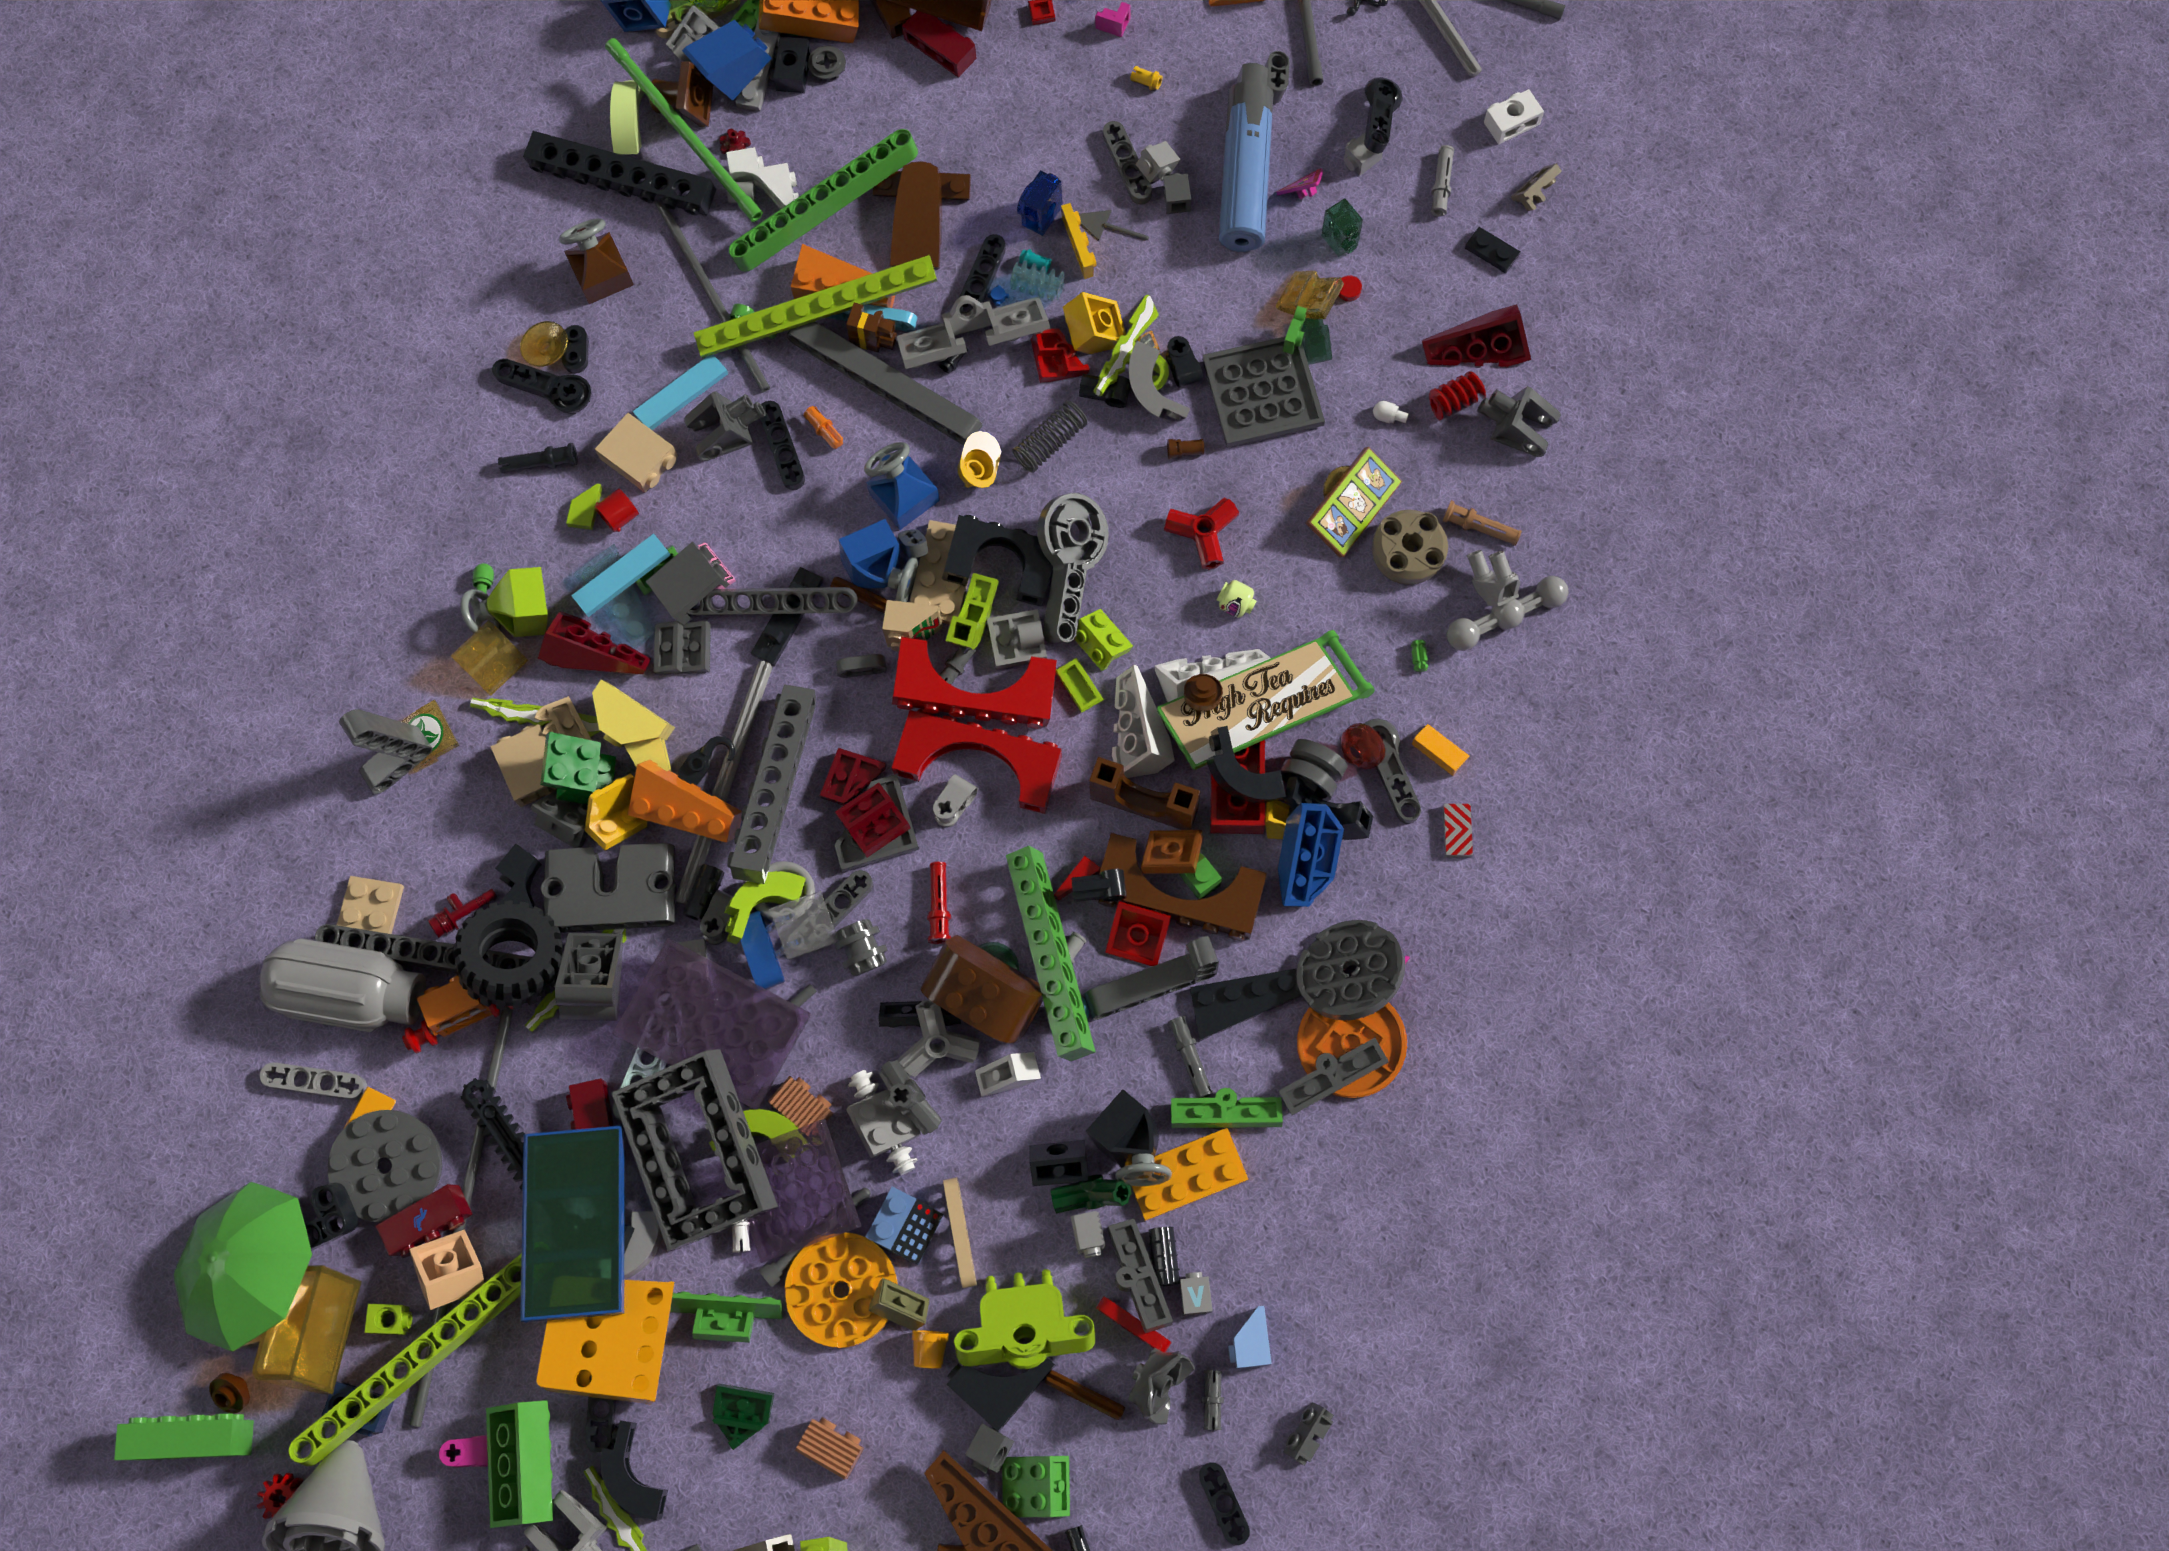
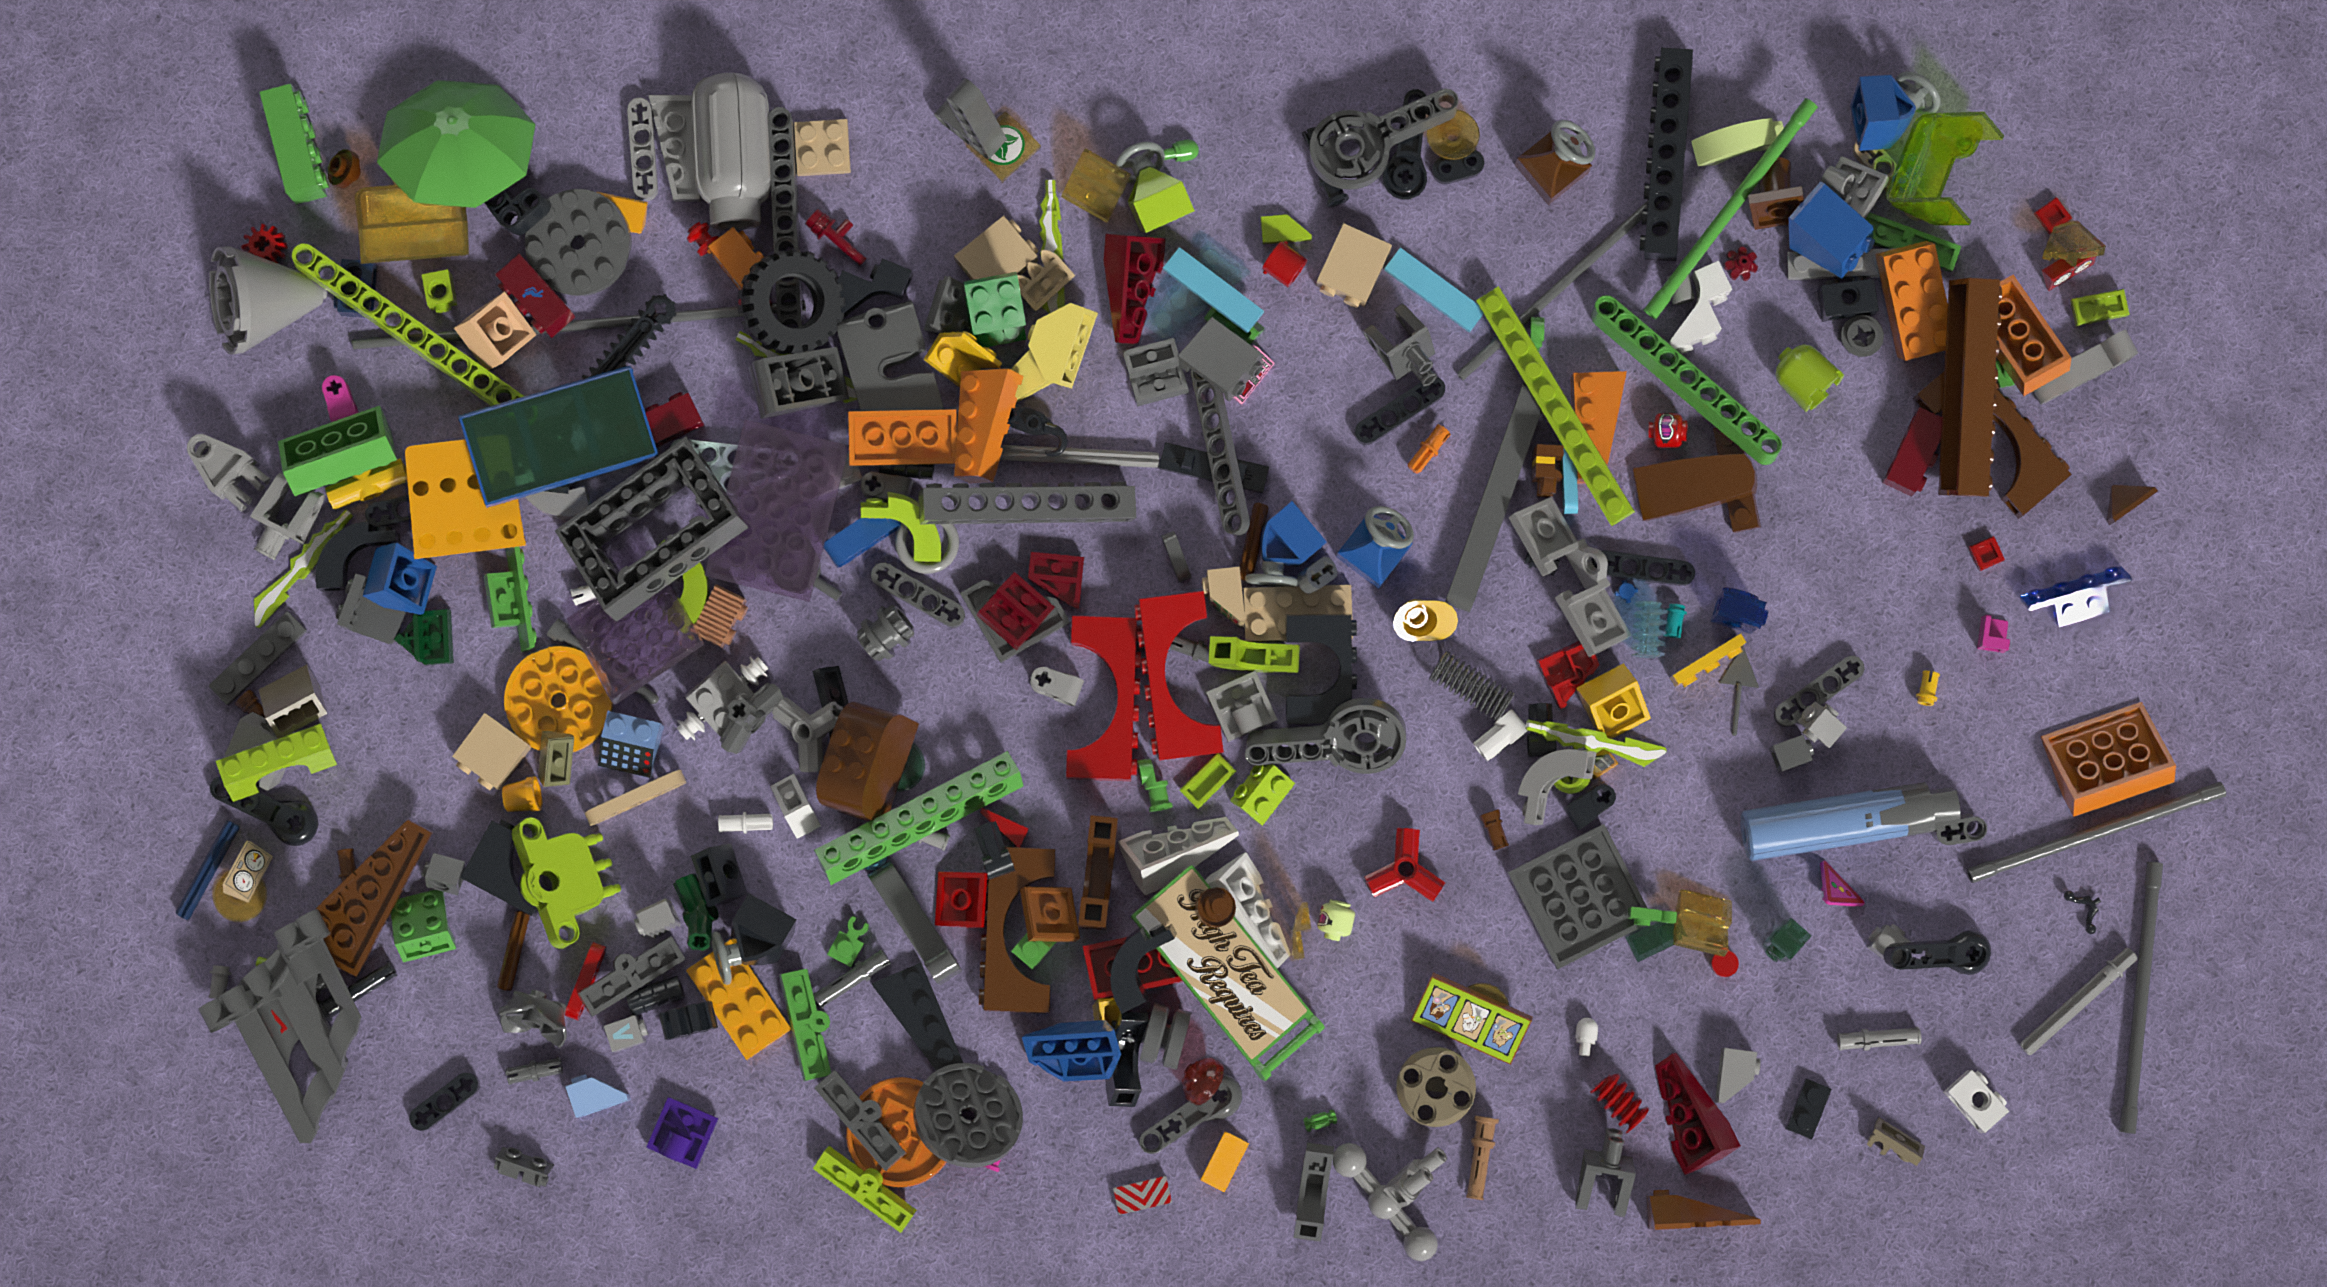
camera: 70 degrees right, 10 degrees up
(319, 1043) = (675, 133): none -> light grey wing
(525, 406) = (1374, 139): none -> dark grey beam
(564, 1442) = (367, 484): none -> yellow piece
(672, 1428) = (399, 580): none -> blue slope
(675, 884) = (902, 437): none -> orange plate
(696, 1465) = (367, 617): none -> dark grey bracket
(802, 926) = (891, 572): clear plate -> none
(830, 1448) = (414, 728): nougat brick -> none
(847, 107) = (1806, 375): none -> lime cylinder
(864, 227) = (1668, 430): none -> red head
(876, 1370) = (491, 752): none -> tan brick
(941, 916) = (981, 689): red pin -> none
(1012, 1128) = (745, 822): none -> white axle
(1075, 732) = (1156, 790): none -> bright green connector
(1101, 424) = (1505, 732): none -> white piece
(1157, 1055) = (847, 946): none -> bright green plate
(1197, 1225) = (688, 1020): none -> black gear
(1245, 633) = (1300, 925): none -> clear yellow slope
(1308, 1260) = (682, 1133): none -> dark purple plate
(1400, 1089) = (865, 1188): none -> lime hinge
(1449, 298) = (1735, 1072): none -> light grey slope
(1494, 678) = (1313, 1192): none -> dark grey arch
(1568, 364) = (1679, 1212): none -> dark orange wedge

